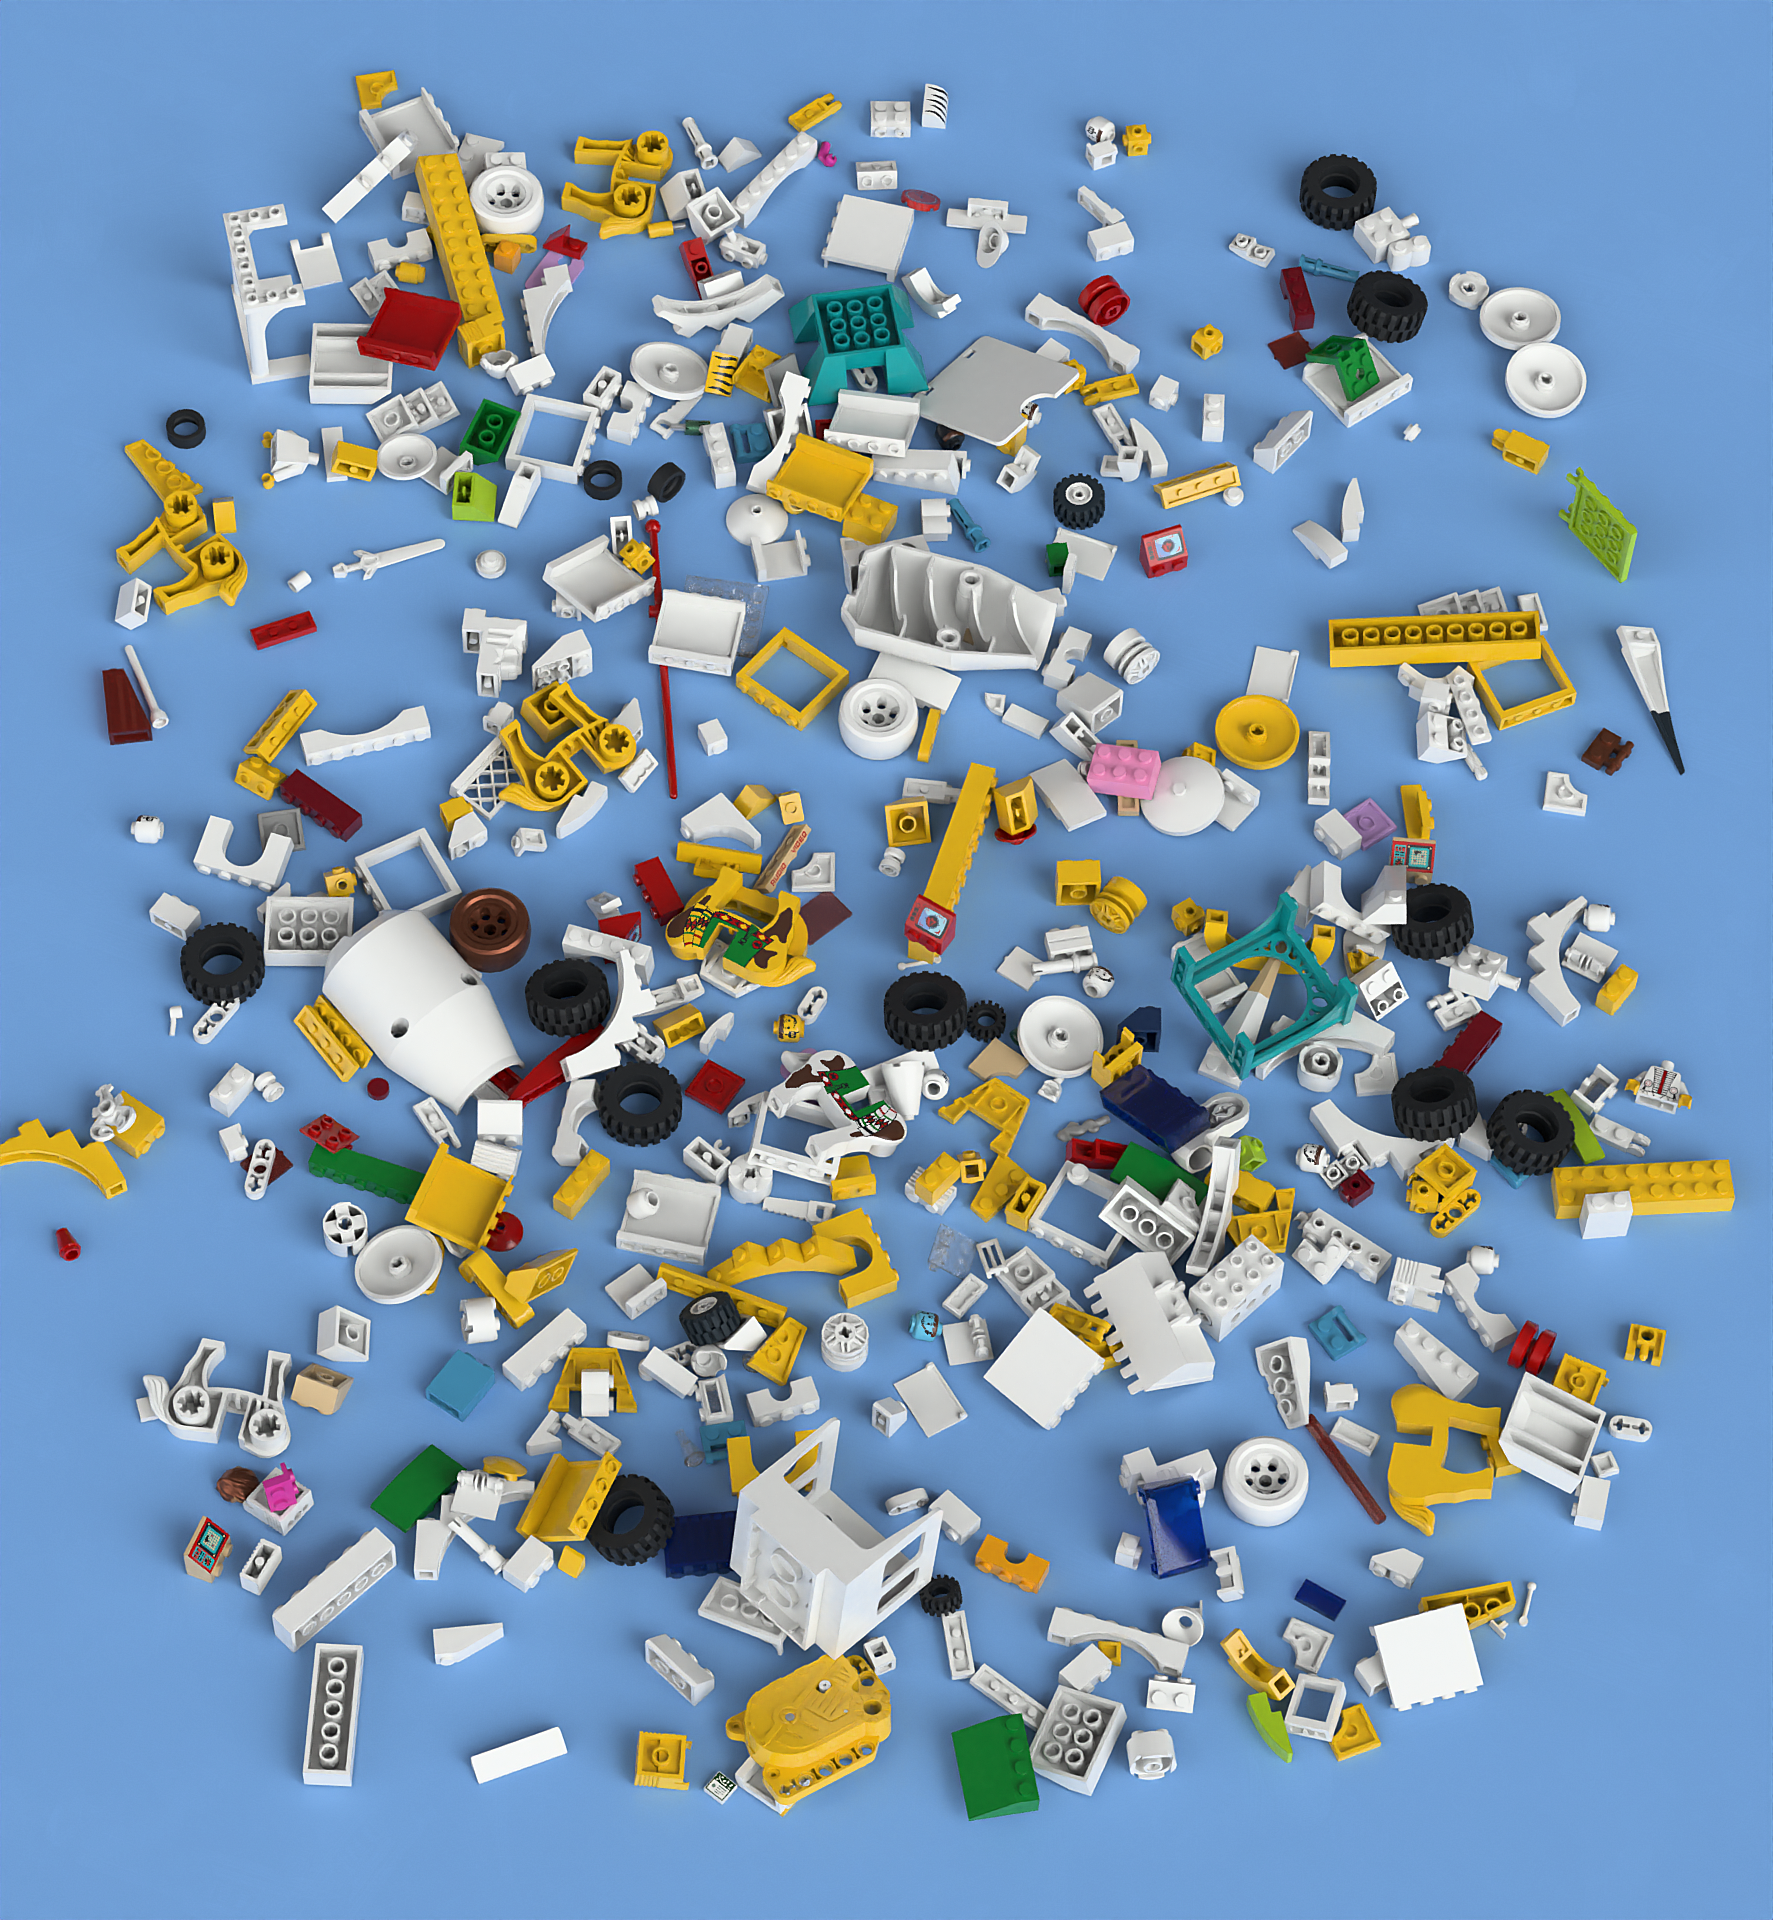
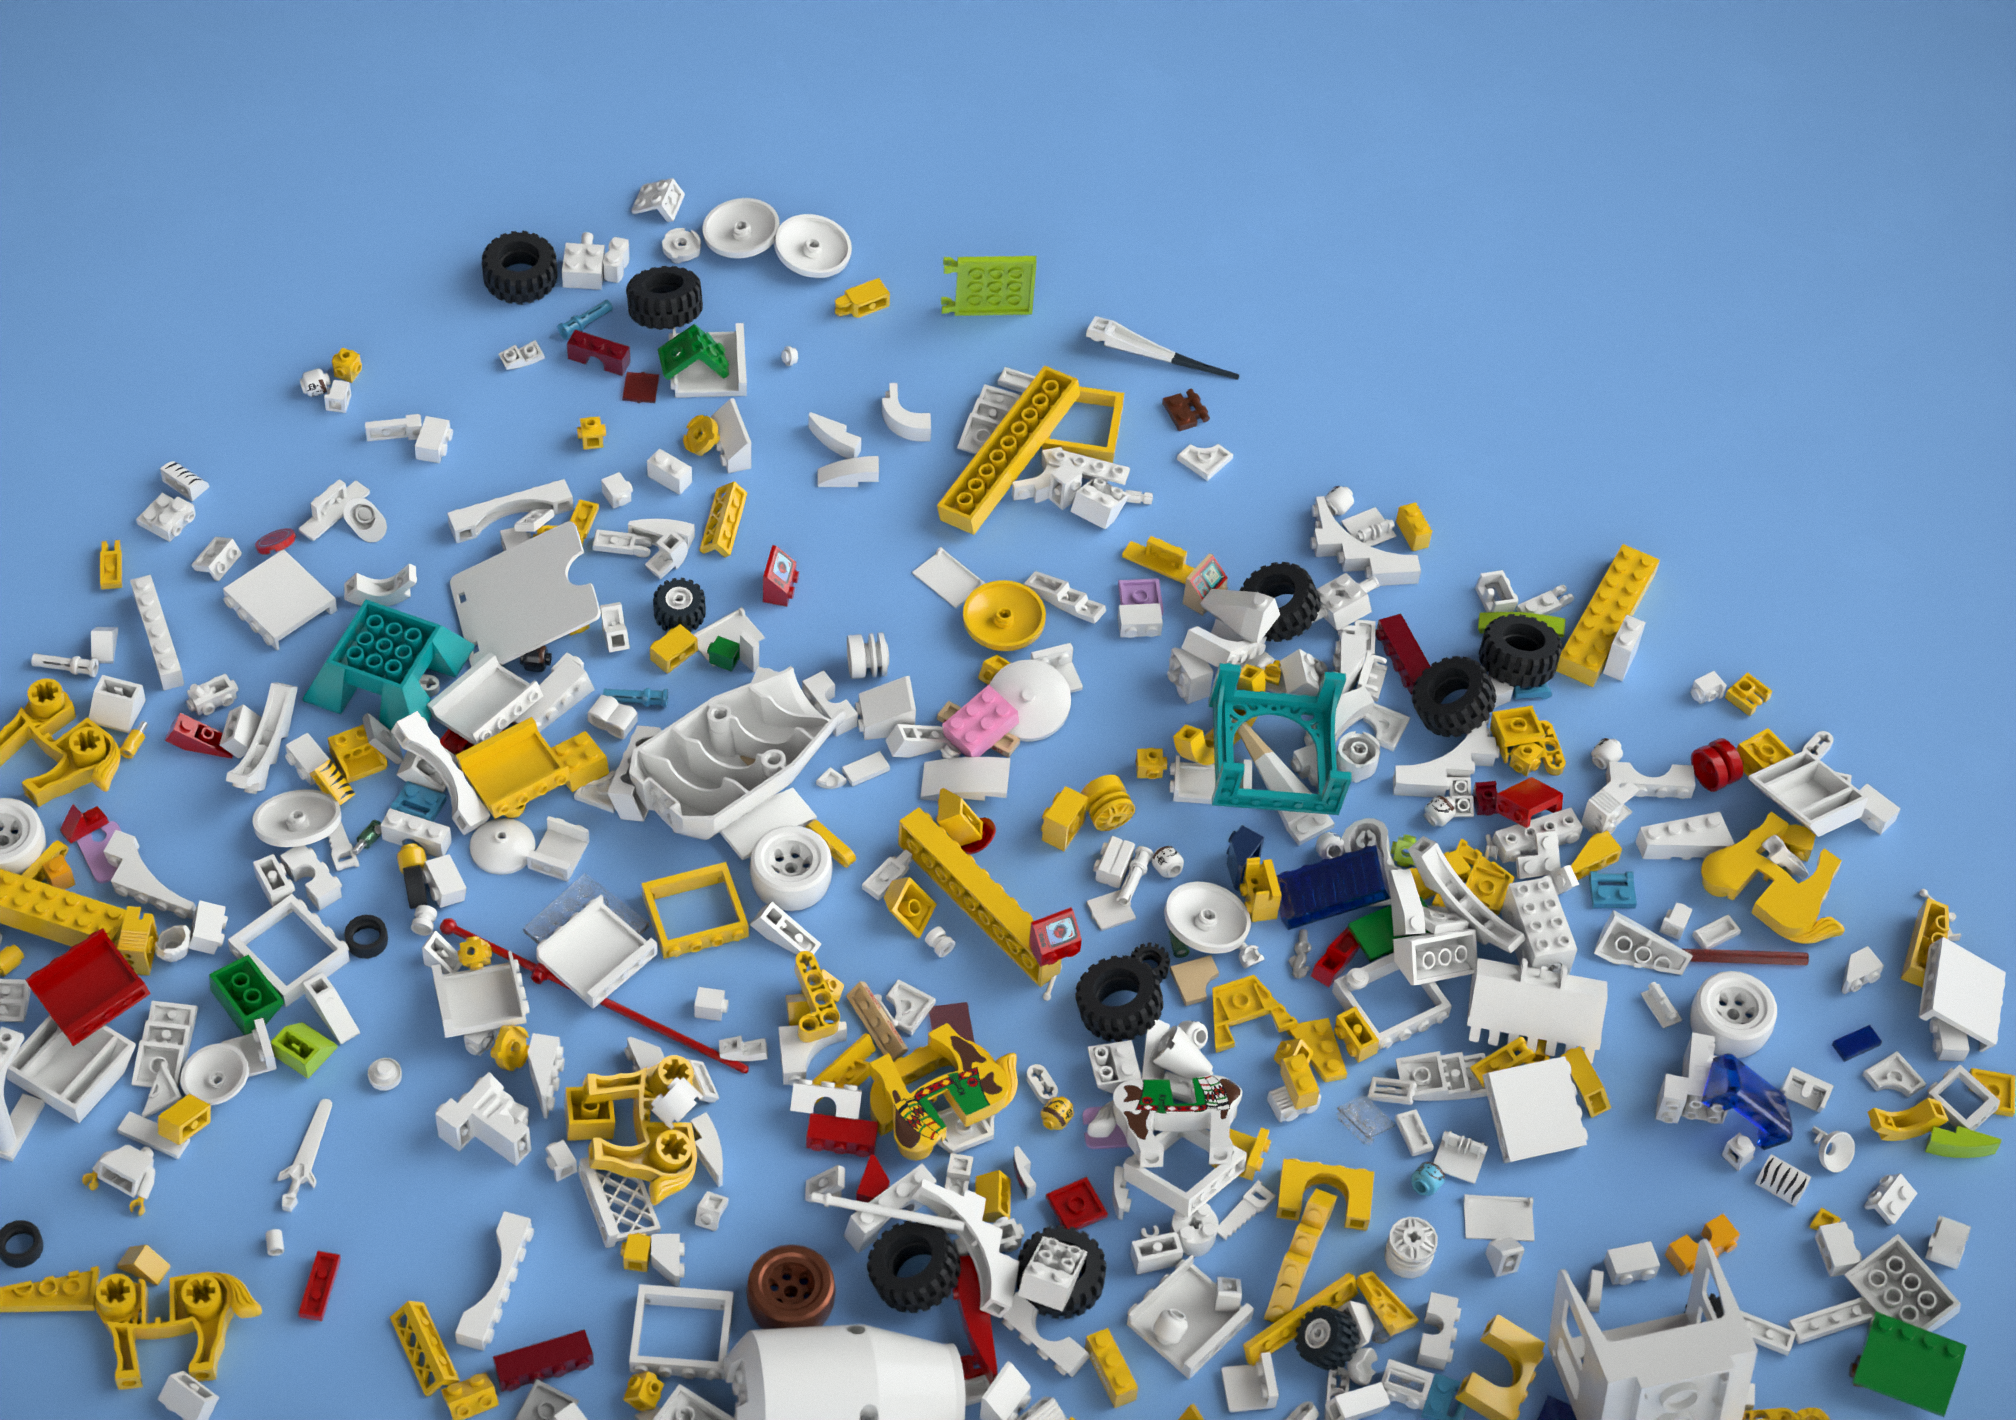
camera: 60 degrees left, 5 degrees down
(371, 436) = (162, 1094): none -> white tile
(566, 617) = (509, 1037): none -> yellow plate
(569, 900) = (829, 1200): none -> white bar
(584, 753) = (676, 1102): none -> white brick
(620, 1089) = (1052, 1273): none -> white slope
(686, 781) = (737, 1050): none -> white slope
(686, 872) = (846, 1099): none -> white arch
(688, 498) = (444, 881): none -> white brick
(694, 467) = (411, 856): none -> yellow head
(706, 1230) = (1228, 1294): none -> white slope
(711, 216) = (161, 694): white slope -> none
(760, 795) = (813, 994): none -> yellow beam
(807, 850) = (879, 999): none -> white hinge
(818, 751) = (783, 930): none -> white slope
(824, 155) = (164, 584): dark pink arm -> none
(862, 1043) = (1113, 1064): none -> white slope
(1035, 522) = (673, 648): none -> yellow brick
(1074, 1628) = (1852, 1182): white arch -> none
(1079, 353) = (534, 520): none -> white tile
(1104, 300) = (495, 474): red wheel -> none
(1104, 1395) = (1587, 1082): none -> yellow slope
(1123, 1598) = (1783, 1180): none -> white brick
(1173, 1167) = (1406, 904): none -> white slope
(1204, 1090) = (1329, 845): none -> white head
(1233, 496) = (754, 504): white plate -> none
(1240, 1425) = (1660, 1005): none -> white hinge
(1267, 418) = (709, 437): none -> yellow plate
(1305, 1283) = (1563, 879): none -> white bracket
(1359, 1300) = (1597, 854): none -> yellow slope
(1370, 1215) = (1527, 799): none -> red panel
(1409, 1011) = (1350, 658): none -> white slope
(1410, 560) = (902, 422): none -> white arch
(1419, 1038) = (1373, 675): none -> white hinge
(1467, 1445) = (1781, 855): none -> white plate
(1505, 246) = (660, 195): none -> white bracket
(1623, 1307) = (1708, 688): none -> white brick
(1660, 1088) = (1525, 550): torso -> none

